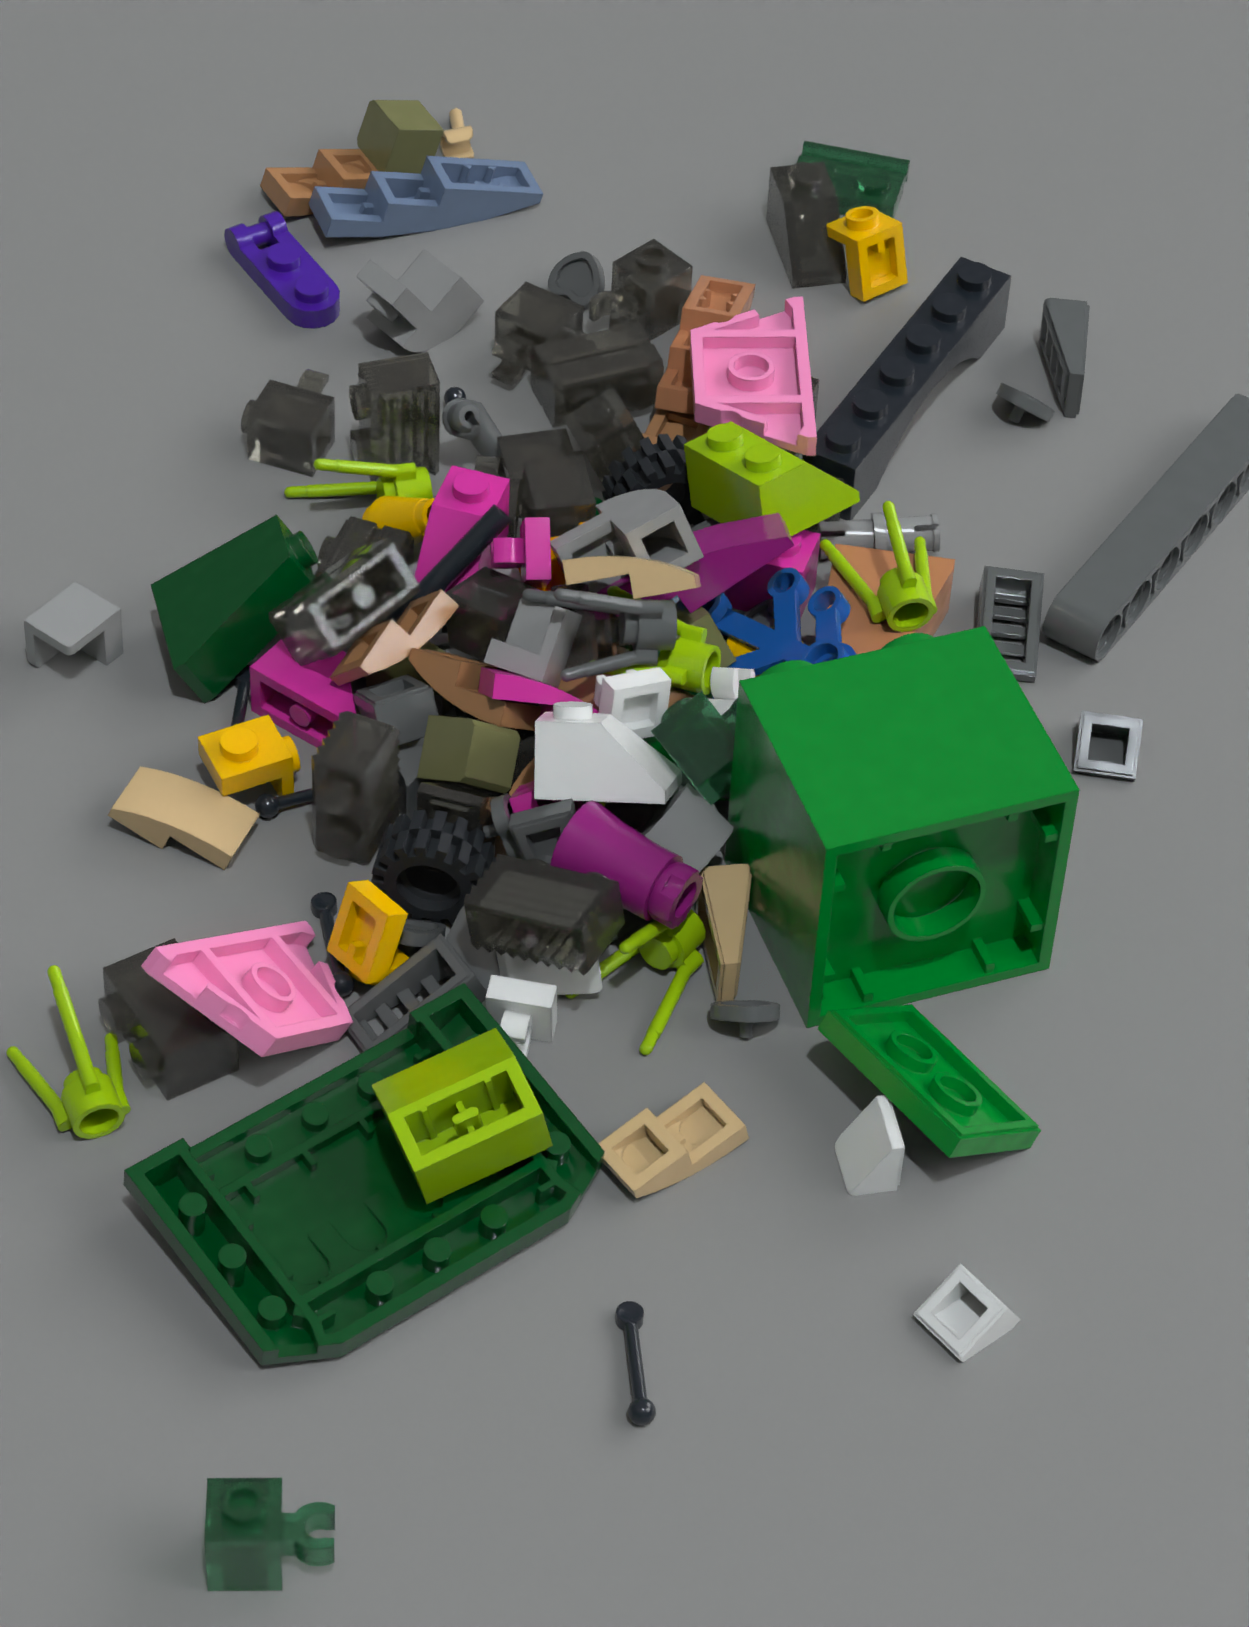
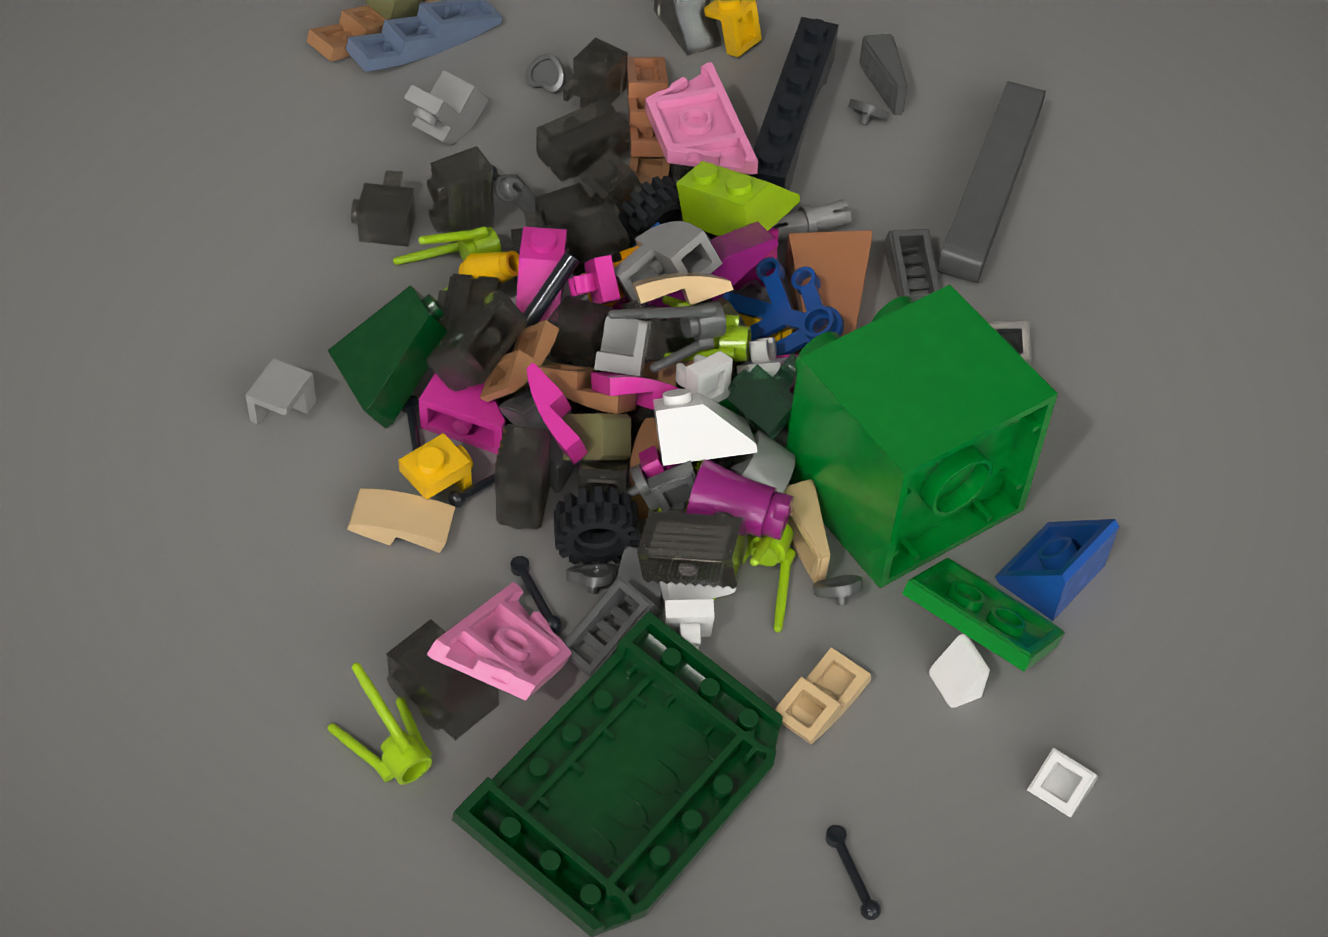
camera: 15 degrees left, 5 degrees up
(285, 271) = (343, 101): dark purple plate -> none
(368, 933) = (567, 585): yellow bracket -> none
(410, 704) = (552, 407): none -> dark pink slope
(463, 1115) = (682, 712): lime slope -> none
(531, 319) = (527, 110): clear smoke brick -> none
(903, 595) = (851, 261): lime plant -> none
(1067, 1044) = (1059, 563): none -> blue slope

